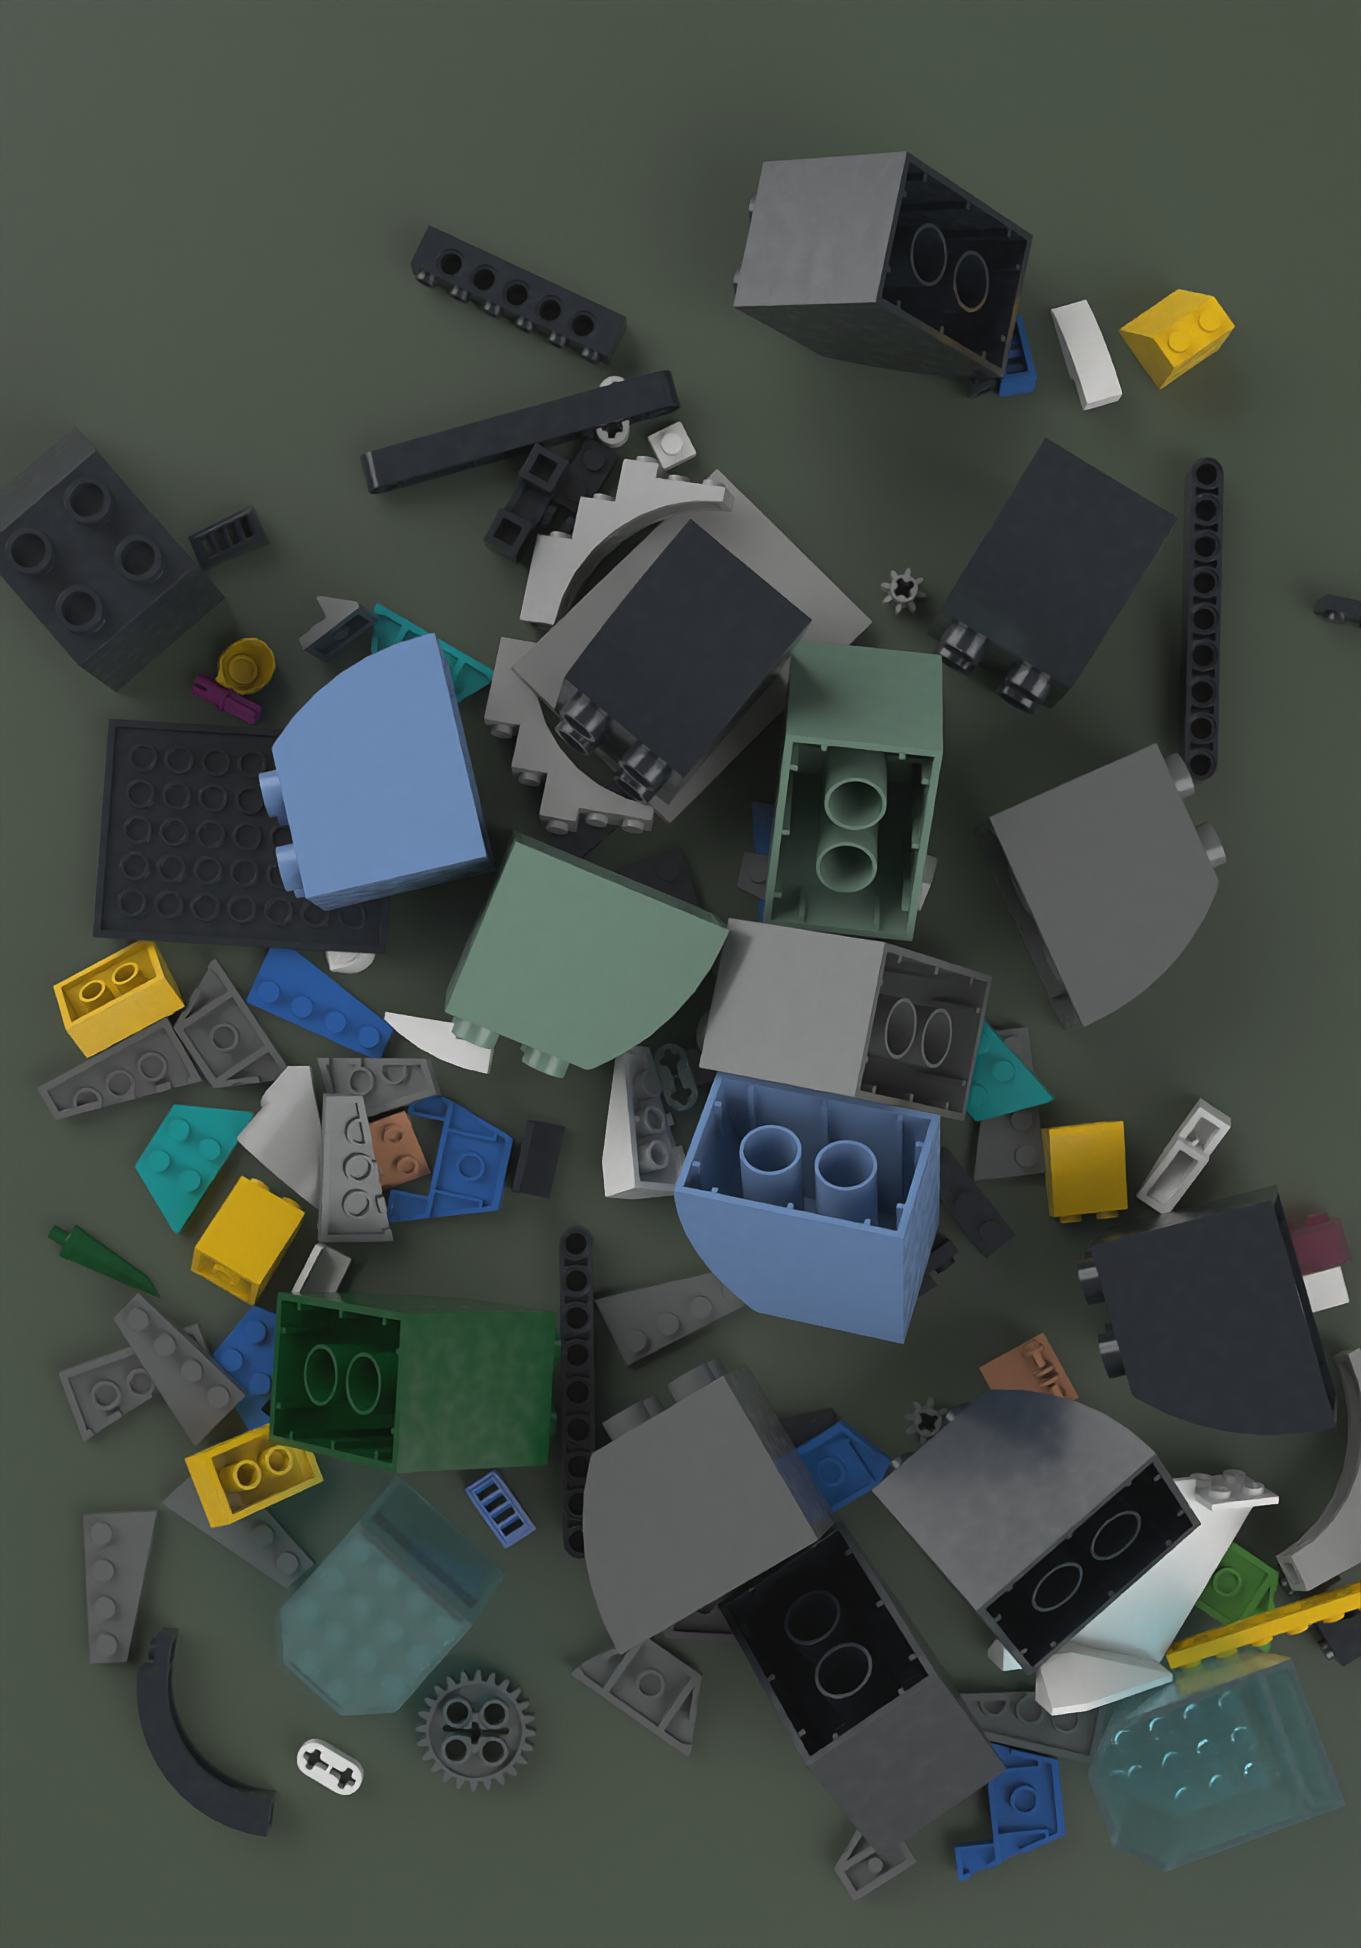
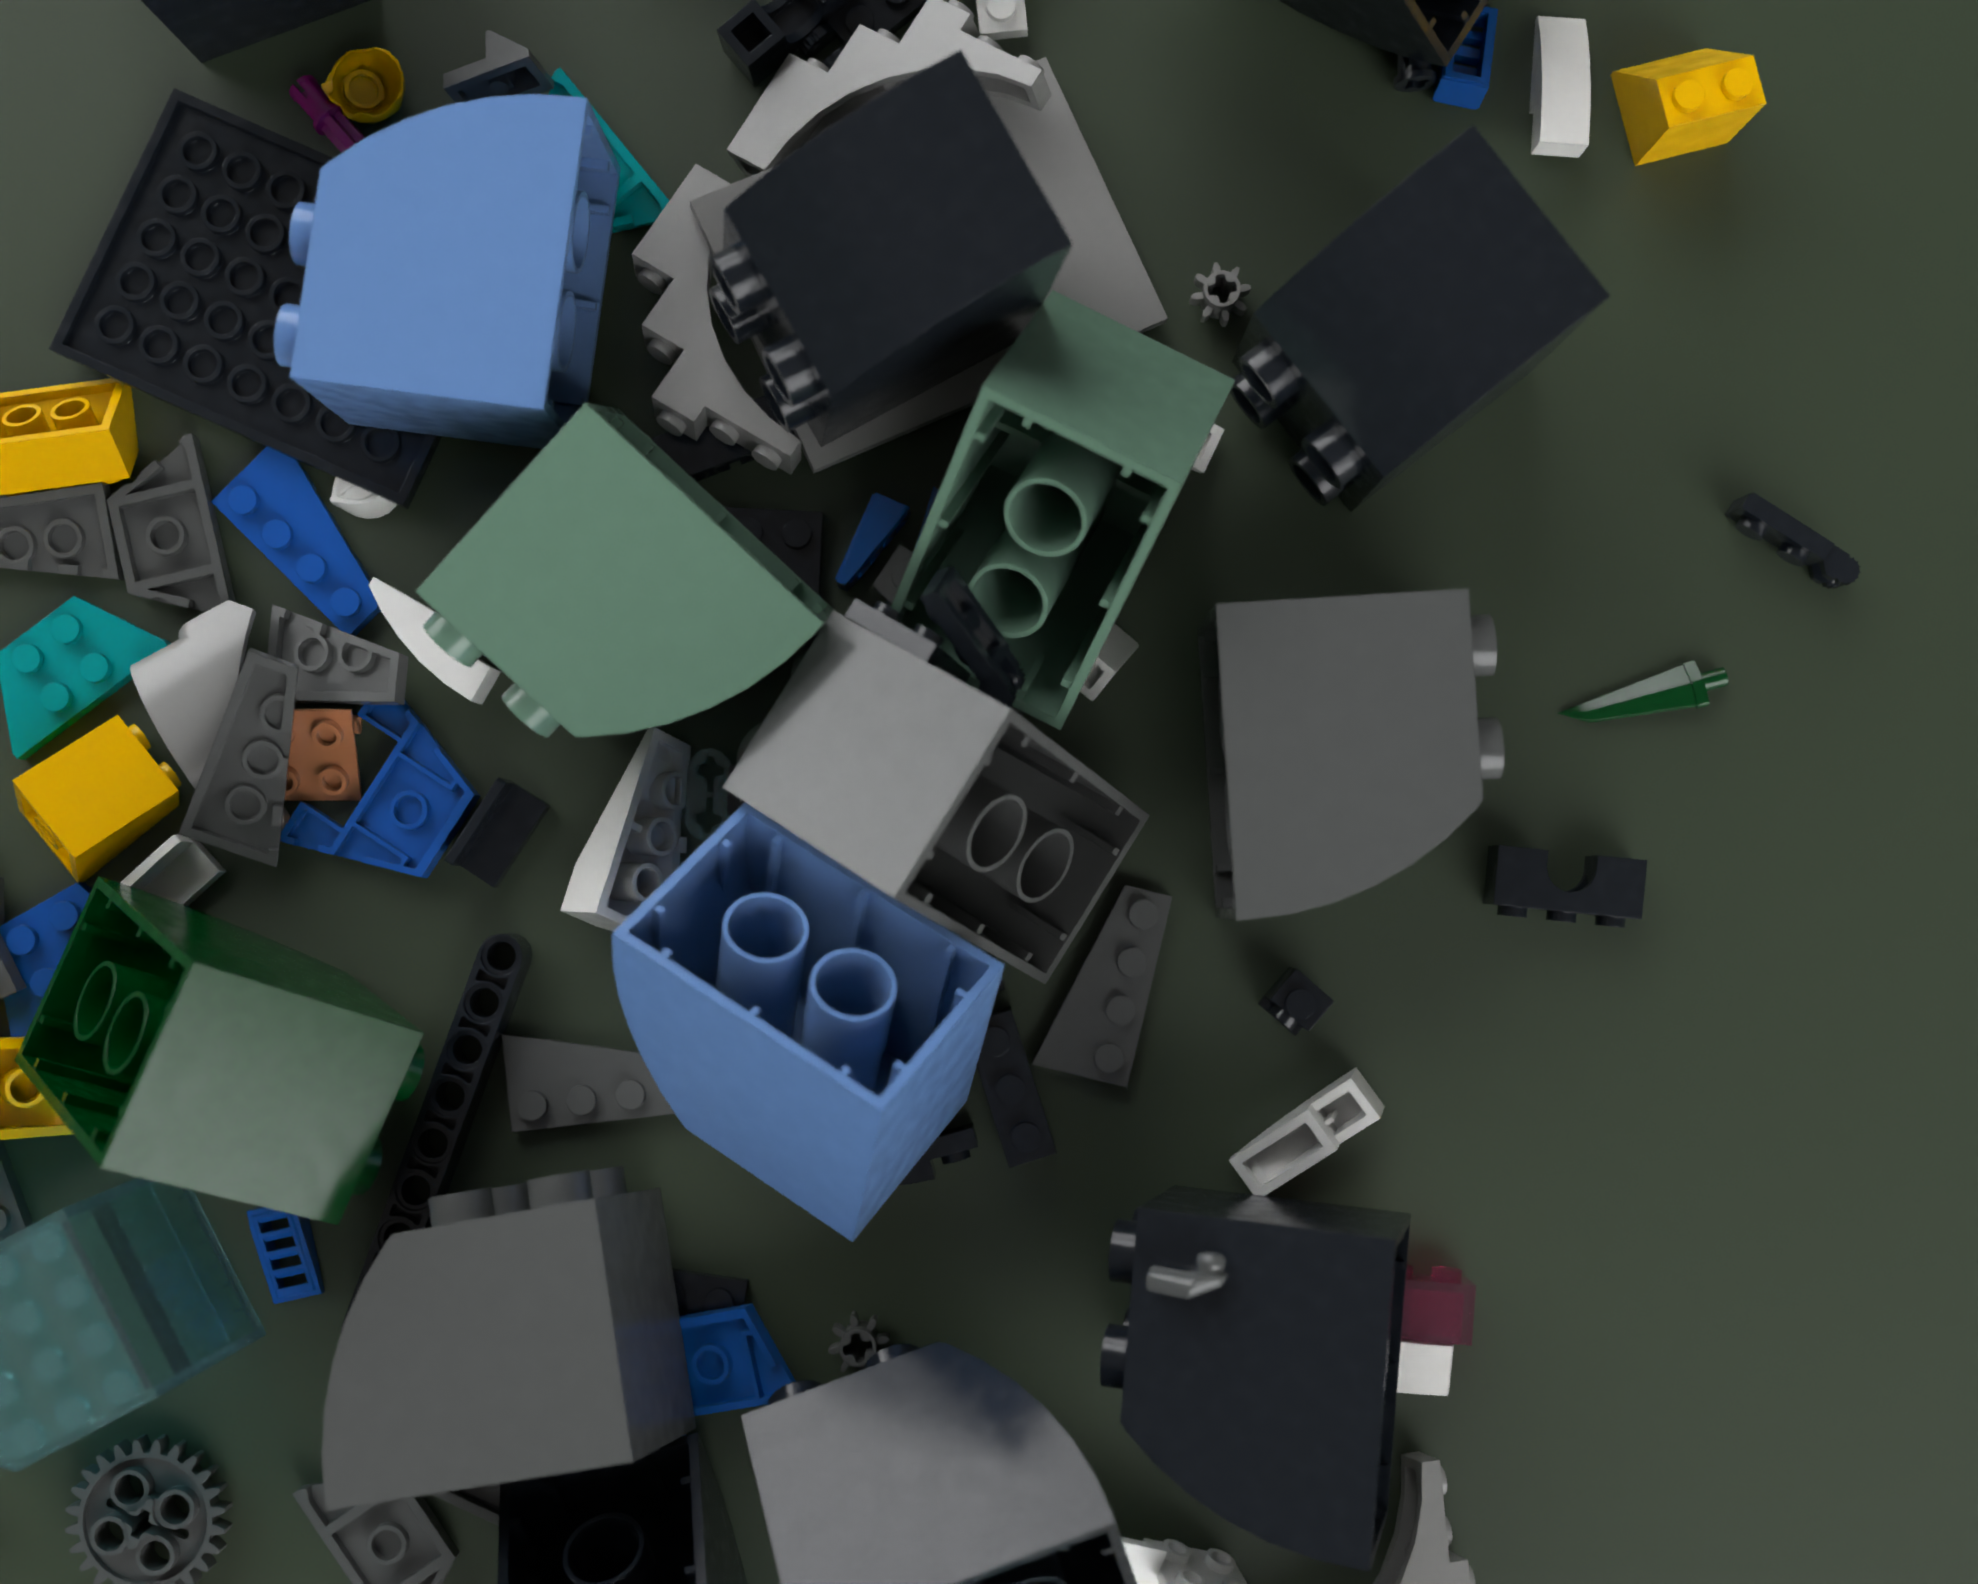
camera: 25 degrees right, 0 degrees up
(724, 843) = (875, 531): none -> blue slope
(798, 918) = (920, 642): none -> wing
(832, 899) = (973, 635): none -> black hinge
(1002, 1080) = (1113, 950): teal wing -> none
(1029, 1368) = (1012, 1335): nougat hinge -> none
(1085, 1170) = (1176, 1103): yellow slope -> none
(1141, 1068) = (1295, 1001): none -> black brick
(1143, 1283) = (1189, 1283): none -> dark grey arm
(1207, 604) = (1595, 451): black beam -> none
(1318, 754) = (1666, 691): none -> dark green bar
(1329, 909) = (1608, 889): none -> black arch

